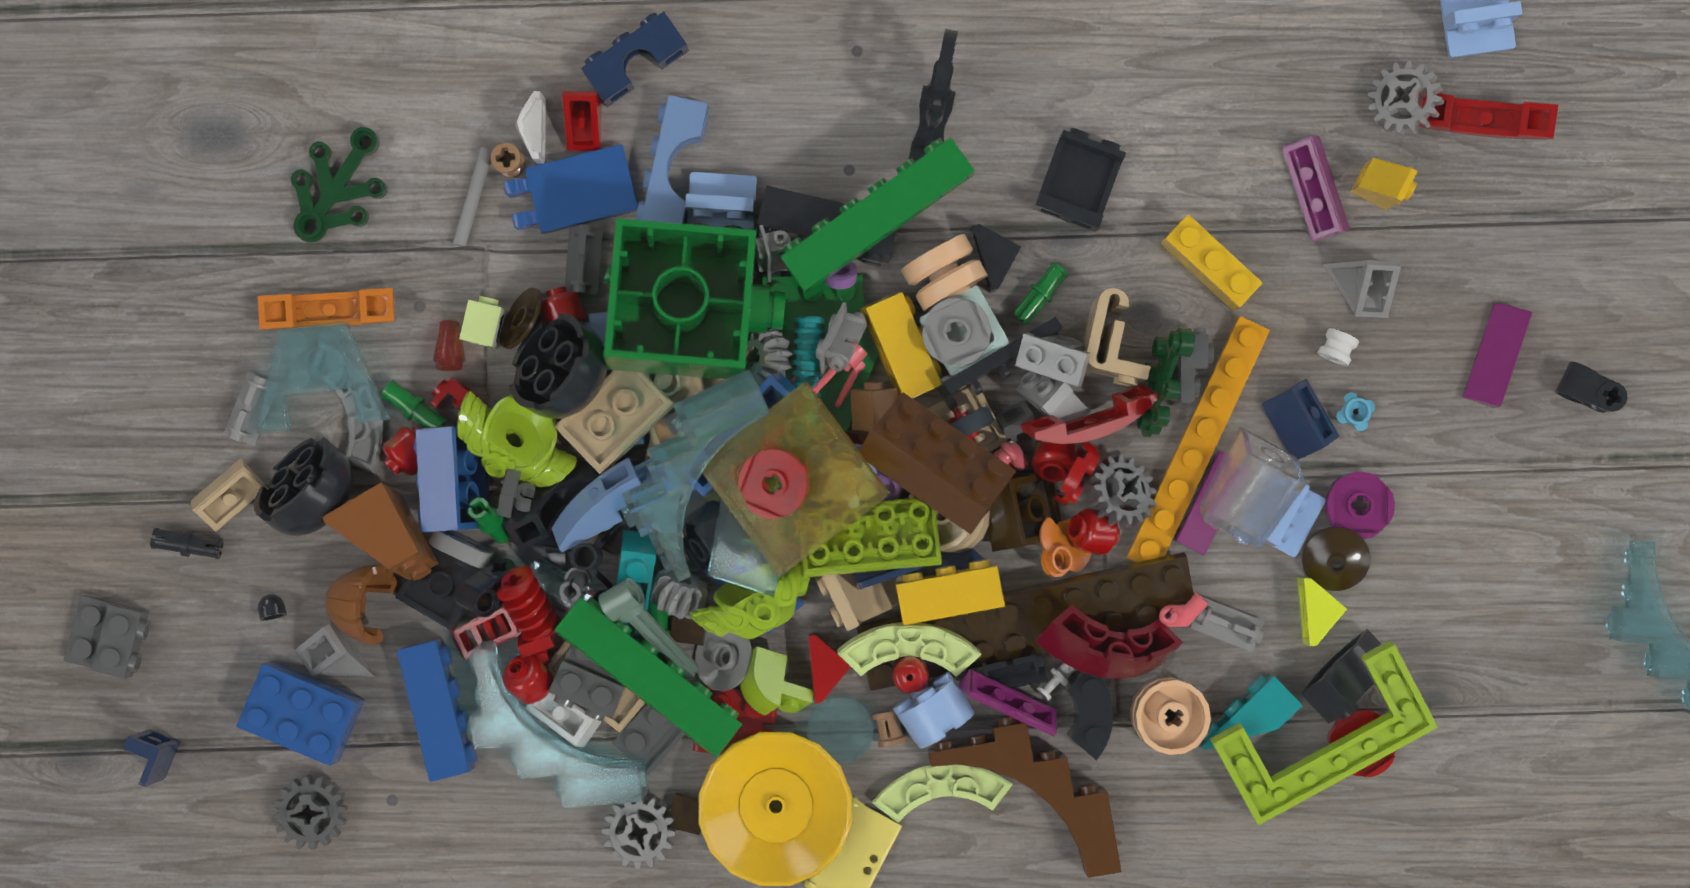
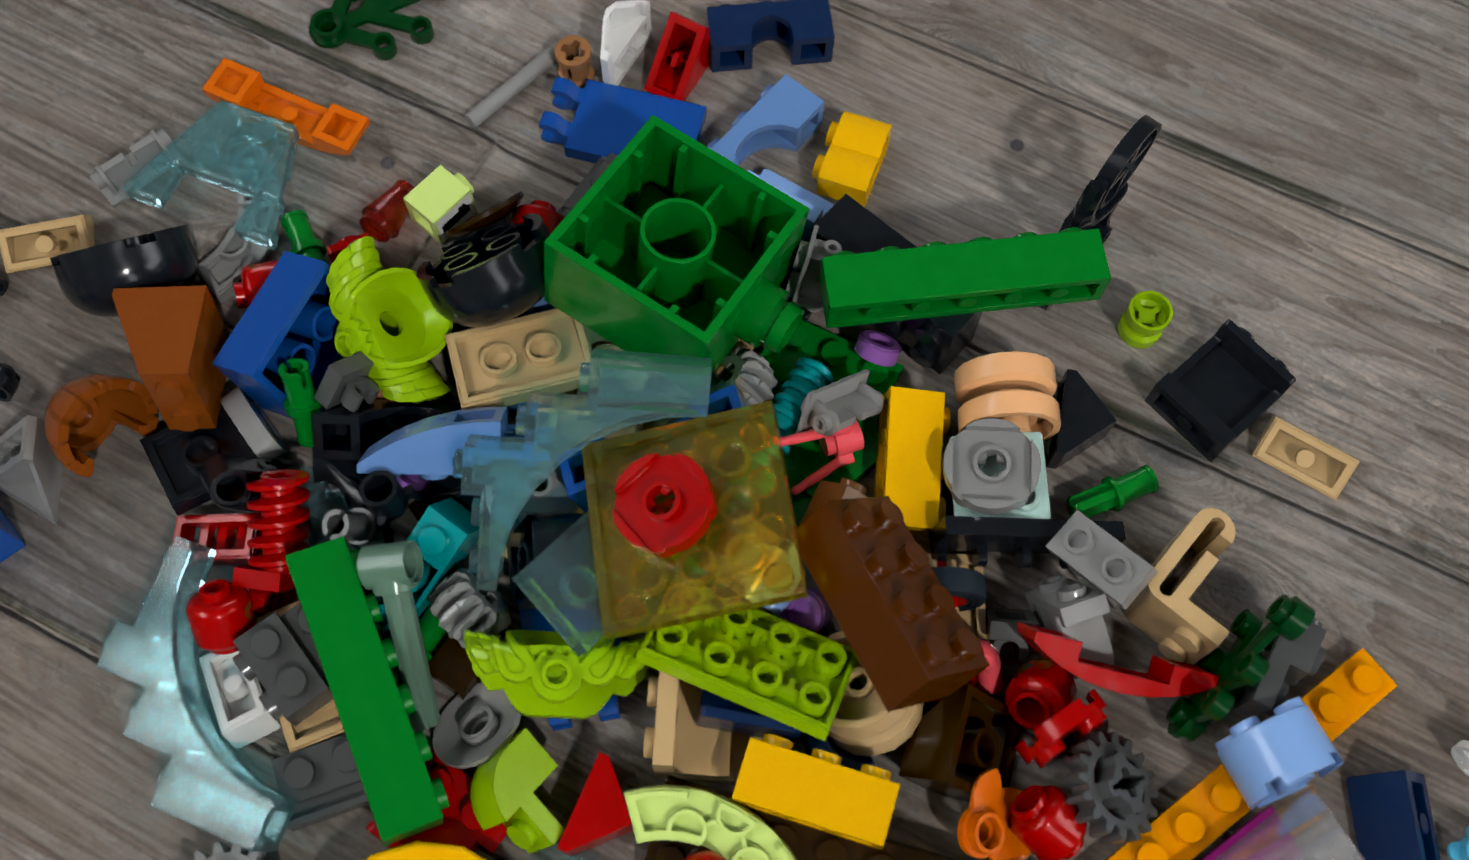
camera: 30 degrees right, 20 degrees down
(436, 709) = (90, 597): blue brick -> none
(748, 131) = (853, 157): none -> yellow brick
(1011, 148) = (1145, 319): none -> lime wheel
(1154, 196) = (1305, 457): none -> tan slope
(1210, 425) = (1278, 754): none -> light blue brick
(1211, 263) = (1351, 562): yellow brick -> none

